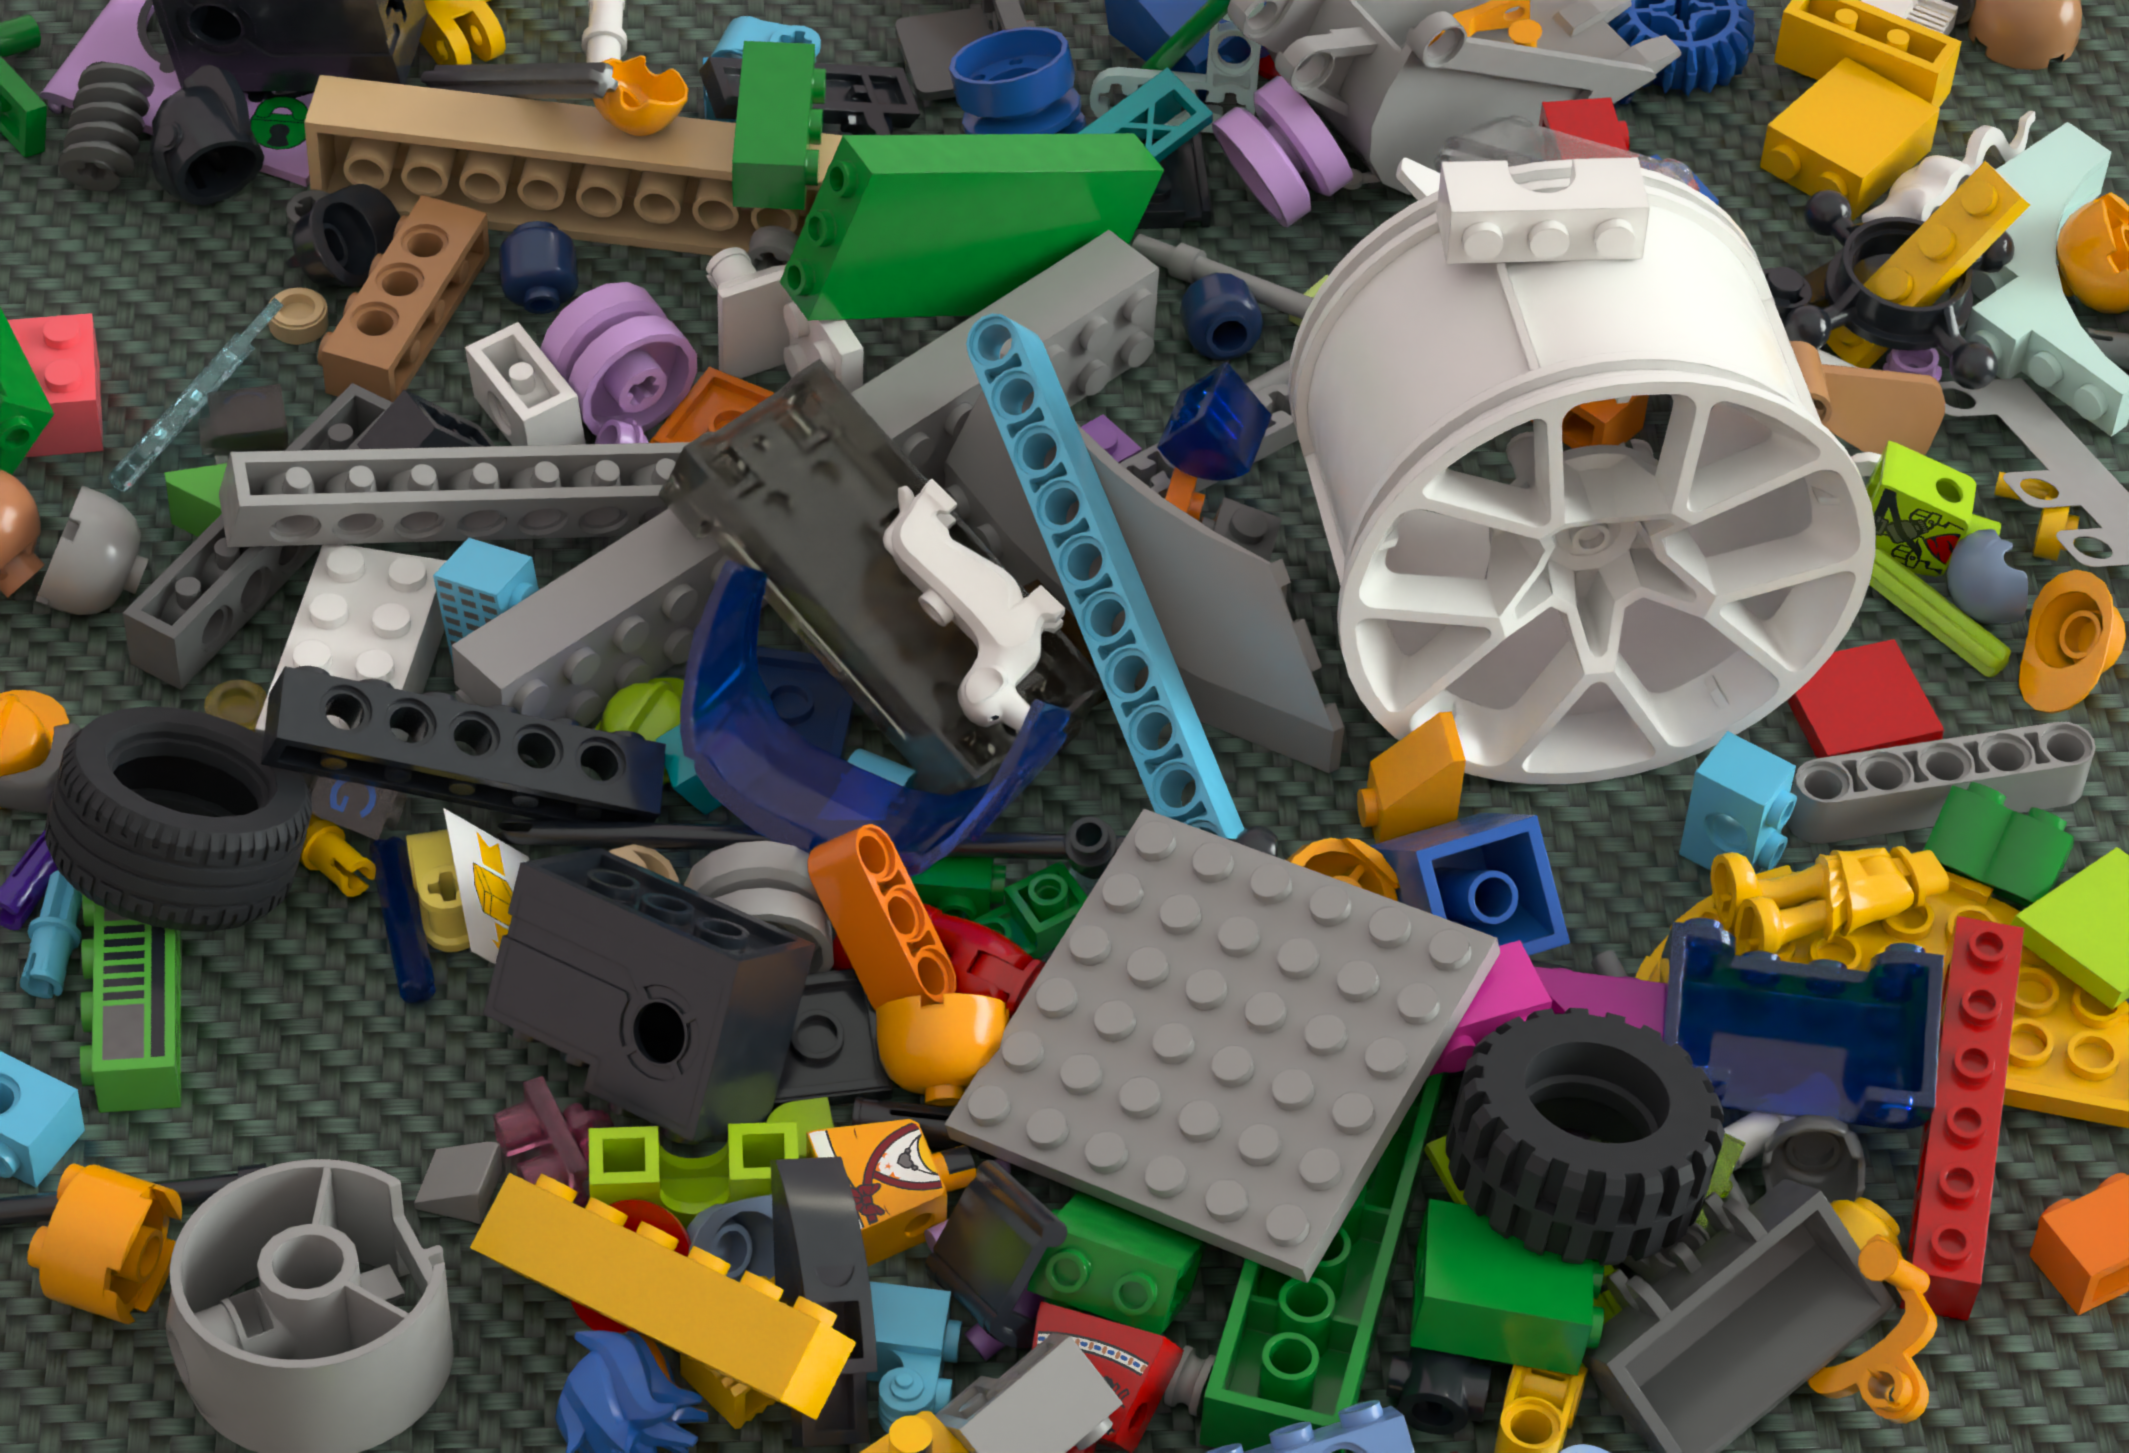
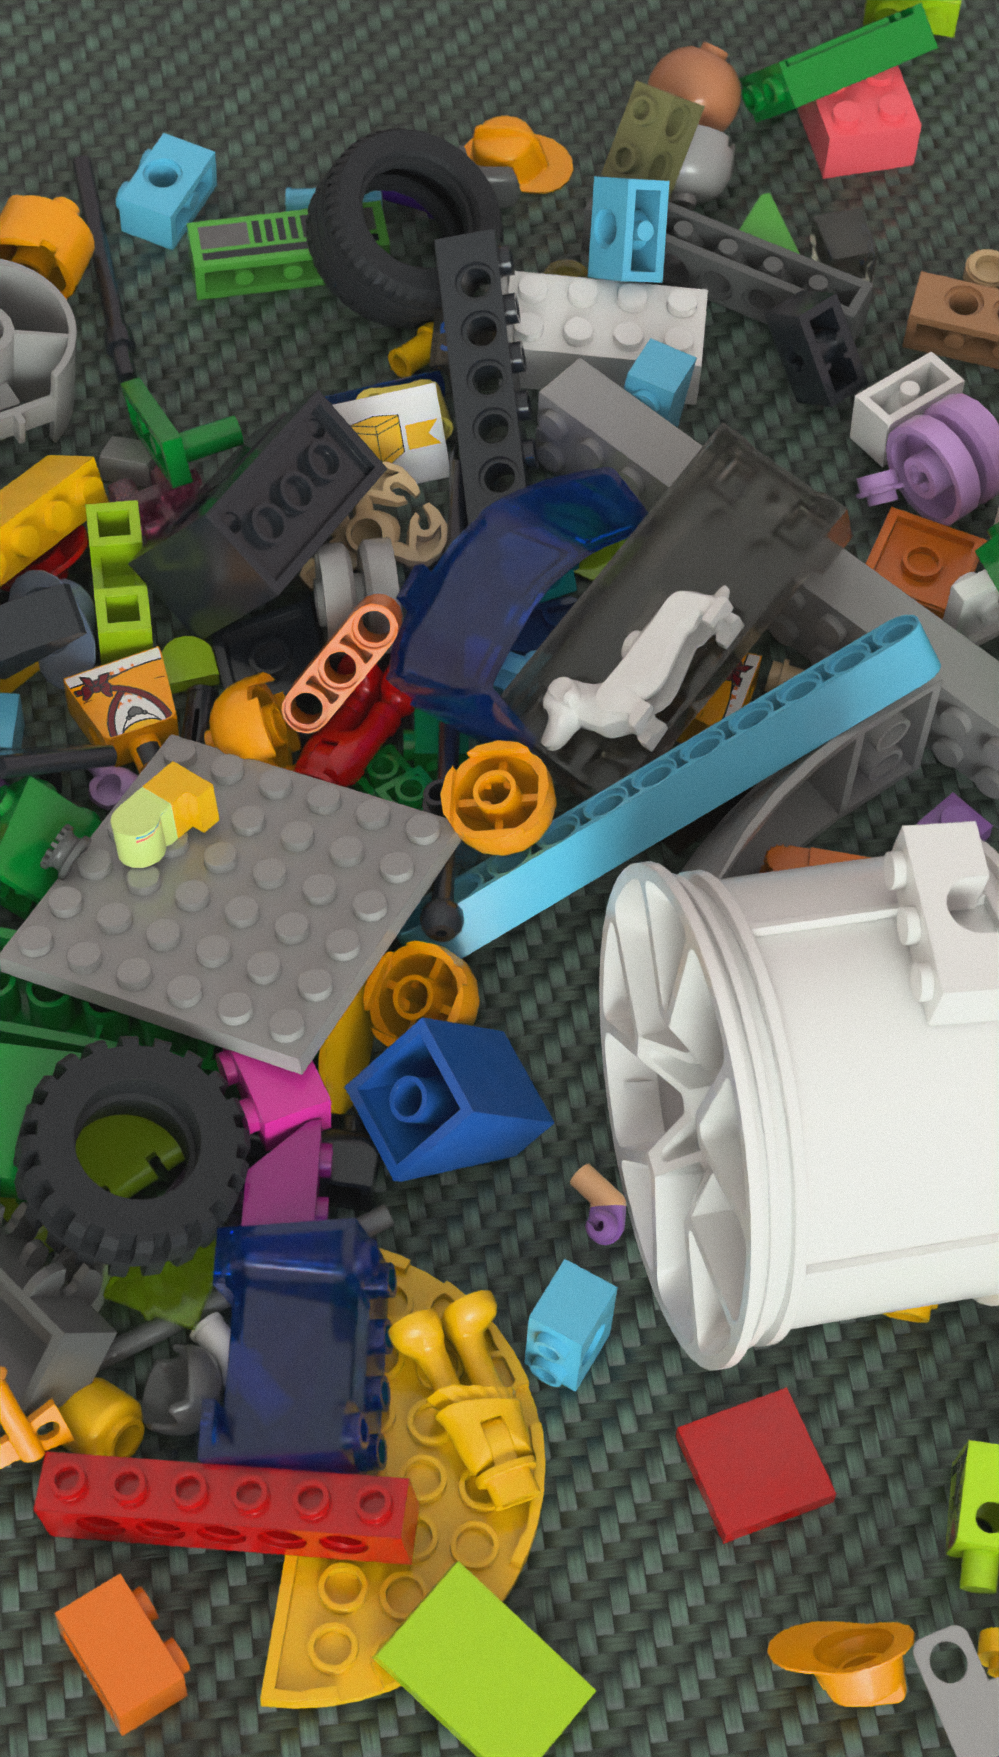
camera: 85 degrees right, 10 degrees up
(102, 540) = (653, 136): none -> olive brick
(190, 402) = (880, 213): clear light blue windscreen -> none
(227, 551) = (628, 229): none -> medium azure brick
(442, 493) = (752, 340): light grey brick -> none
(473, 1109) = (166, 446): none -> green piece
(1121, 1089) = (162, 814): none -> leg
(1123, 759) = (499, 798): none -> light orange cylinder
(1165, 1189) = (65, 851): none -> dark grey bush
(1415, 781) = (570, 1071): light orange slope -> none
(1569, 793) = (607, 1205): none -> arm
(1909, 783) = (653, 1554): light grey beam -> none
(1938, 615) = (883, 1537): lime axle -> none
(1984, 583) = (910, 1567): sand blue hair -> none
(2000, 846) = (564, 1566): green brick -> none

